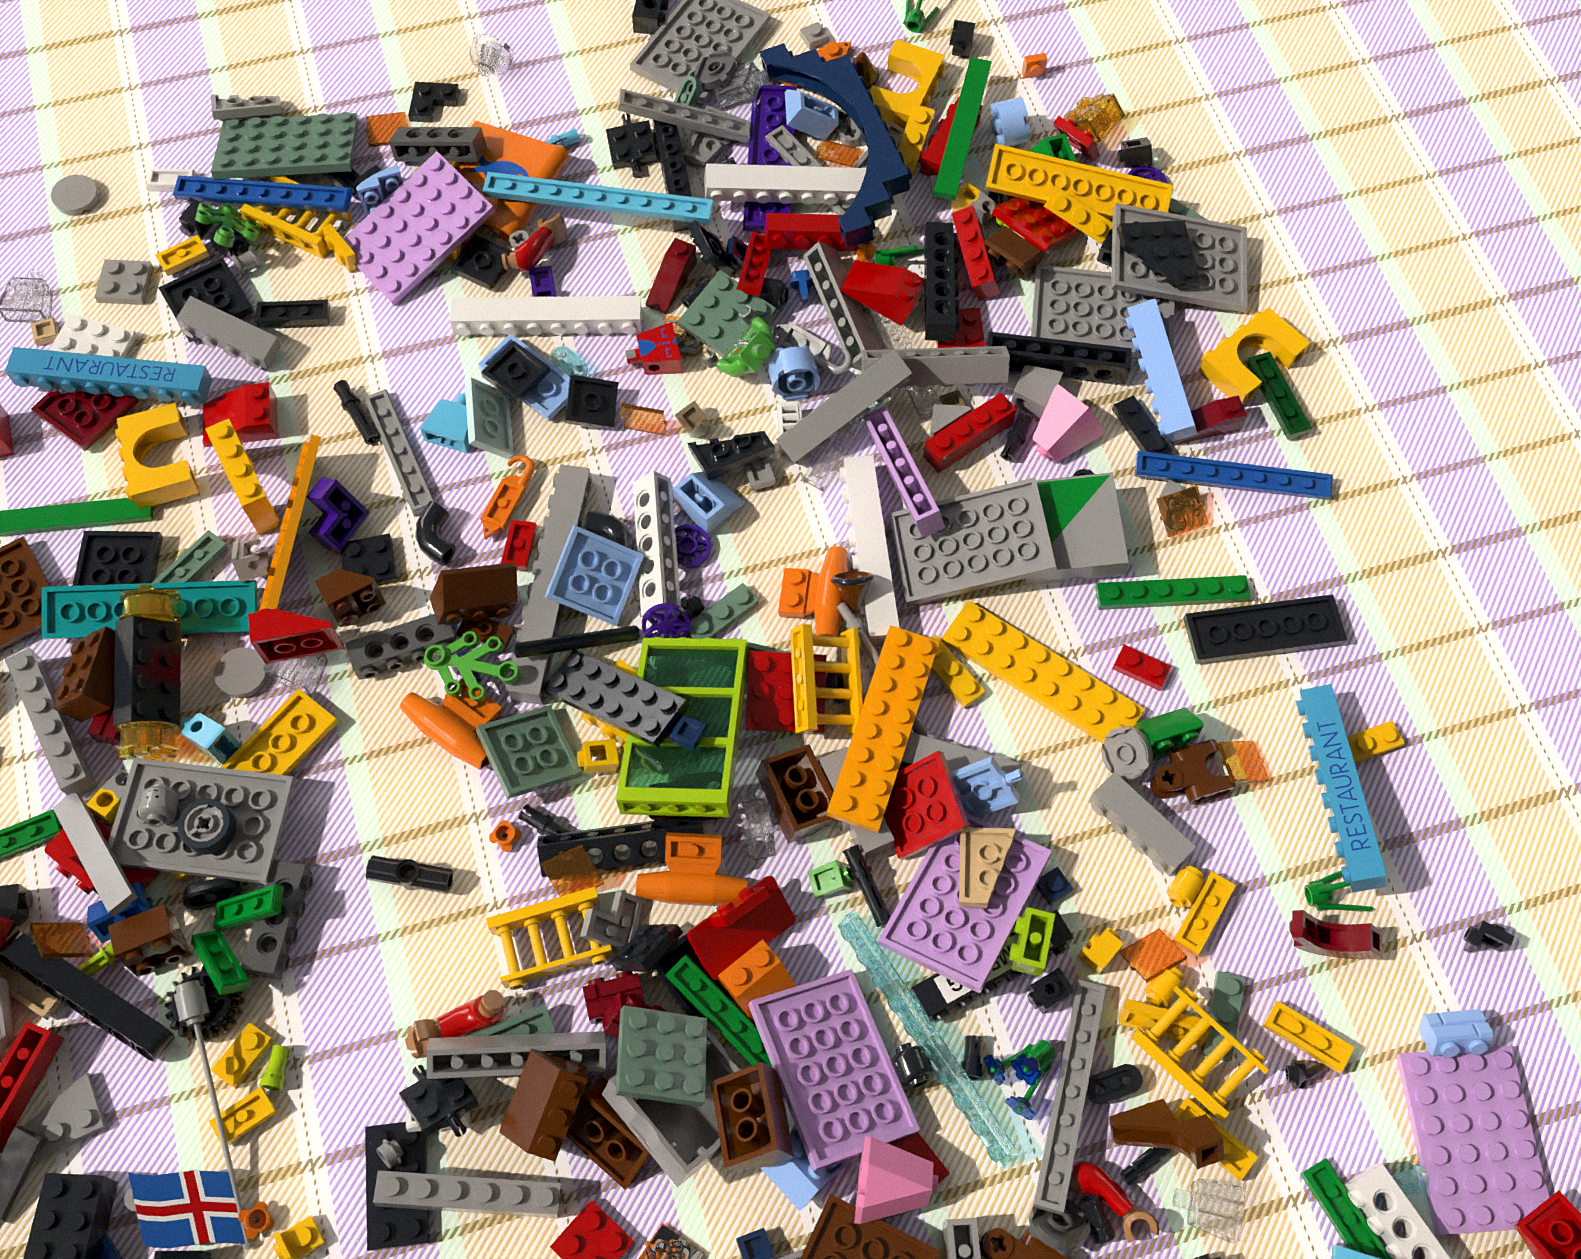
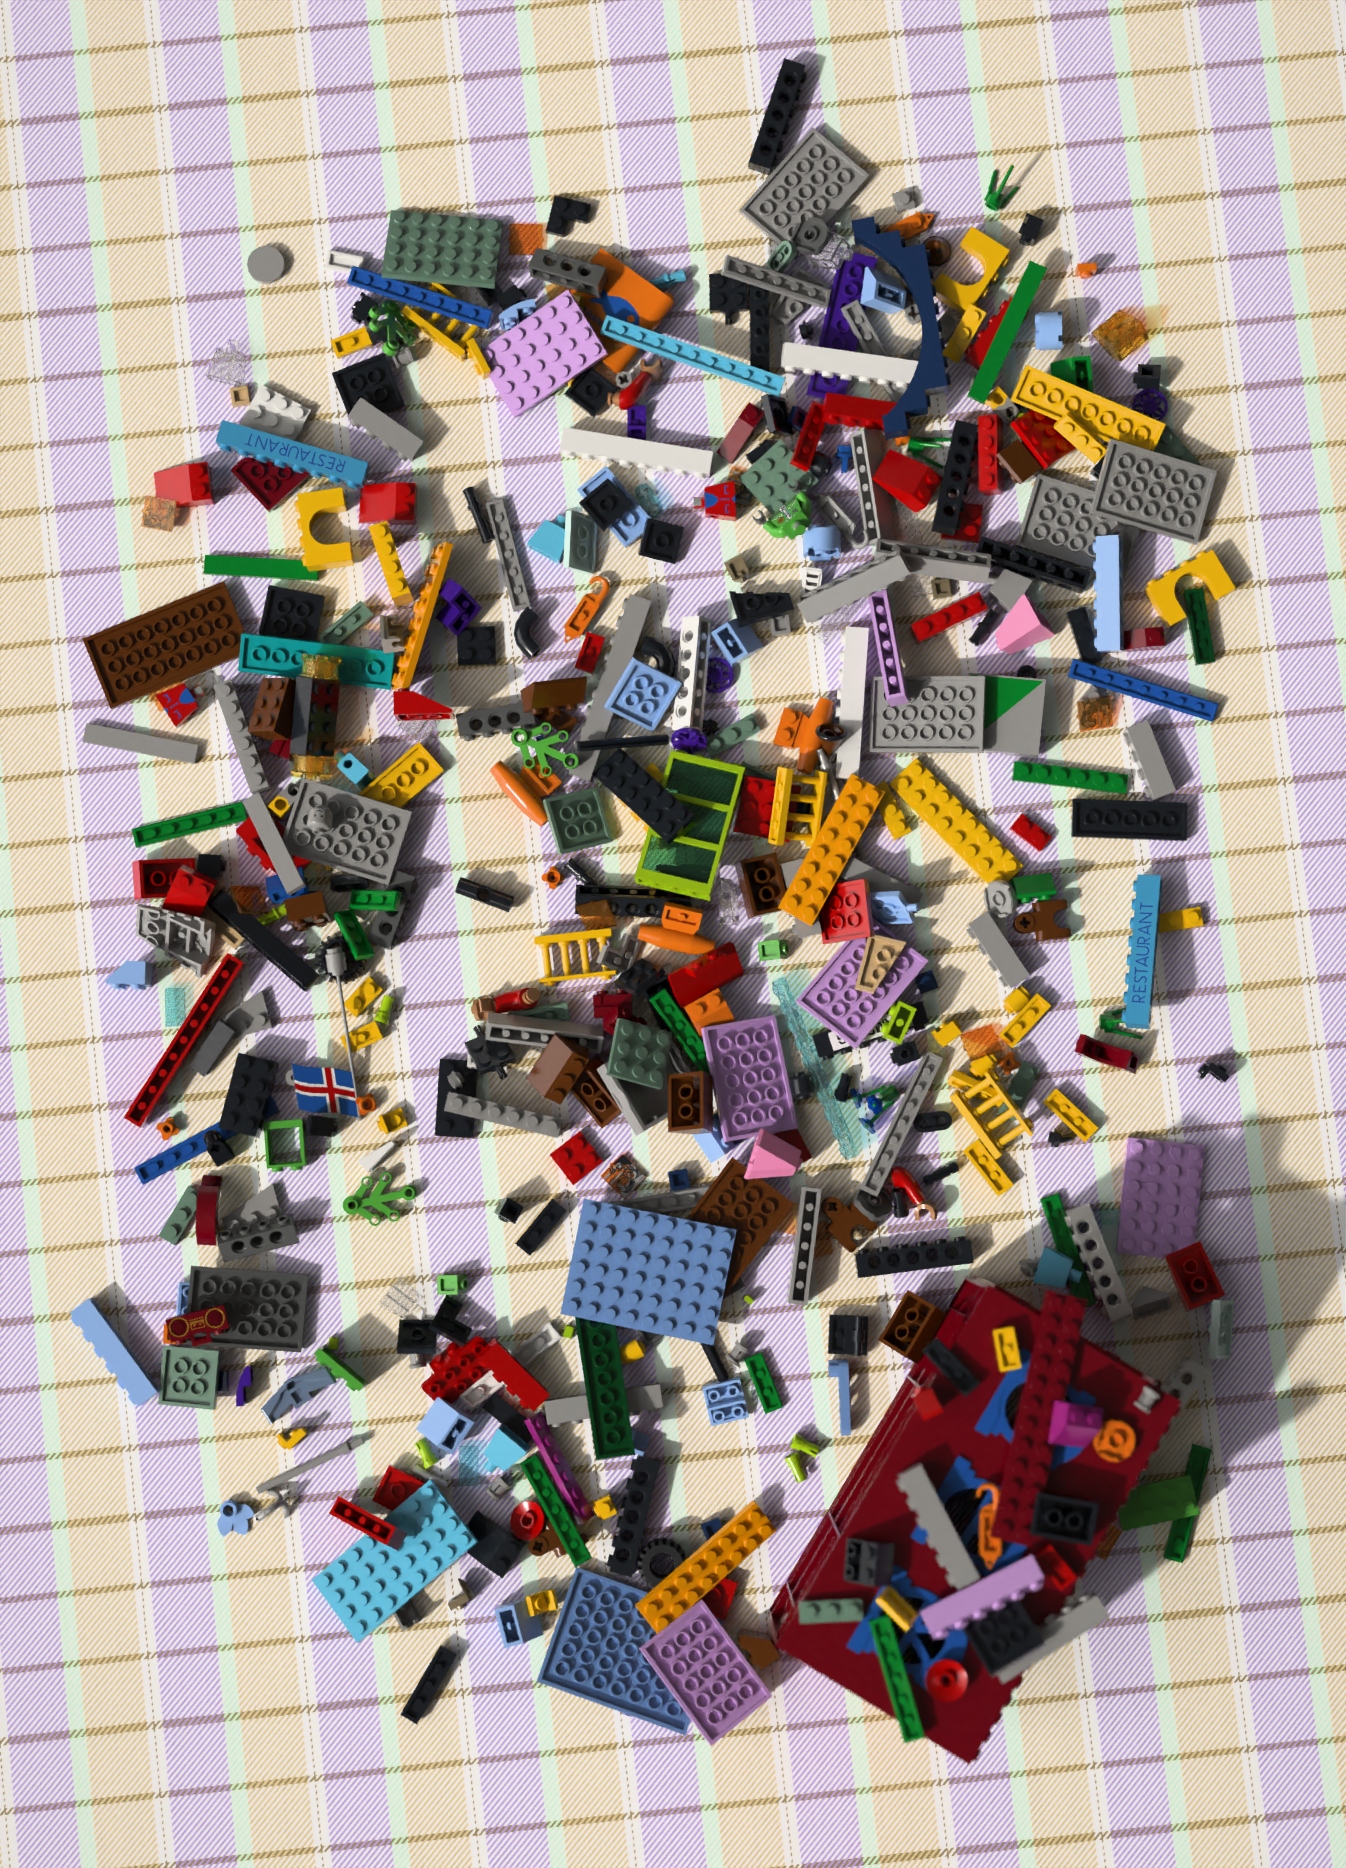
camera: 10 degrees right, 20 degrees up
(124, 282) = (303, 359): light grey plate -> none
(221, 824) = (362, 840): wheel -> none
(237, 107) = (403, 199): light grey wing -> none
(240, 673) = (377, 719): light grey tile -> none
(292, 313) = (435, 414): black plate -> none
(349, 595) = (461, 676): reddish brown slope -> none
(489, 56) = (621, 185): clear cylinder -> none
(602, 749) = (631, 829): yellow brick -> none
(643, 419) = (698, 564): clear orange piece -> none
(688, 733) = (691, 838): dark blue plate -> none
(837, 153) = (898, 332): clear orange piece -> none
(867, 885) = (797, 959): black pin -> none
(945, 416) = (932, 603): light grey slope -> none
(1080, 140) = (1098, 354): red plate -> none
(1157, 1127) = (952, 1154): reddish brown arch -> none
(1163, 248) = (1138, 486): black plate -> none
(1193, 983) = (1008, 1068): none -> orange plate
(1214, 1207) = (976, 1209): clear torso -> none
(1243, 762) = (1082, 918): clear orange piece -> none
(1268, 553) = (1149, 761): none -> light grey brick
(1456, 1033) = (1168, 1131): light blue brick -> none

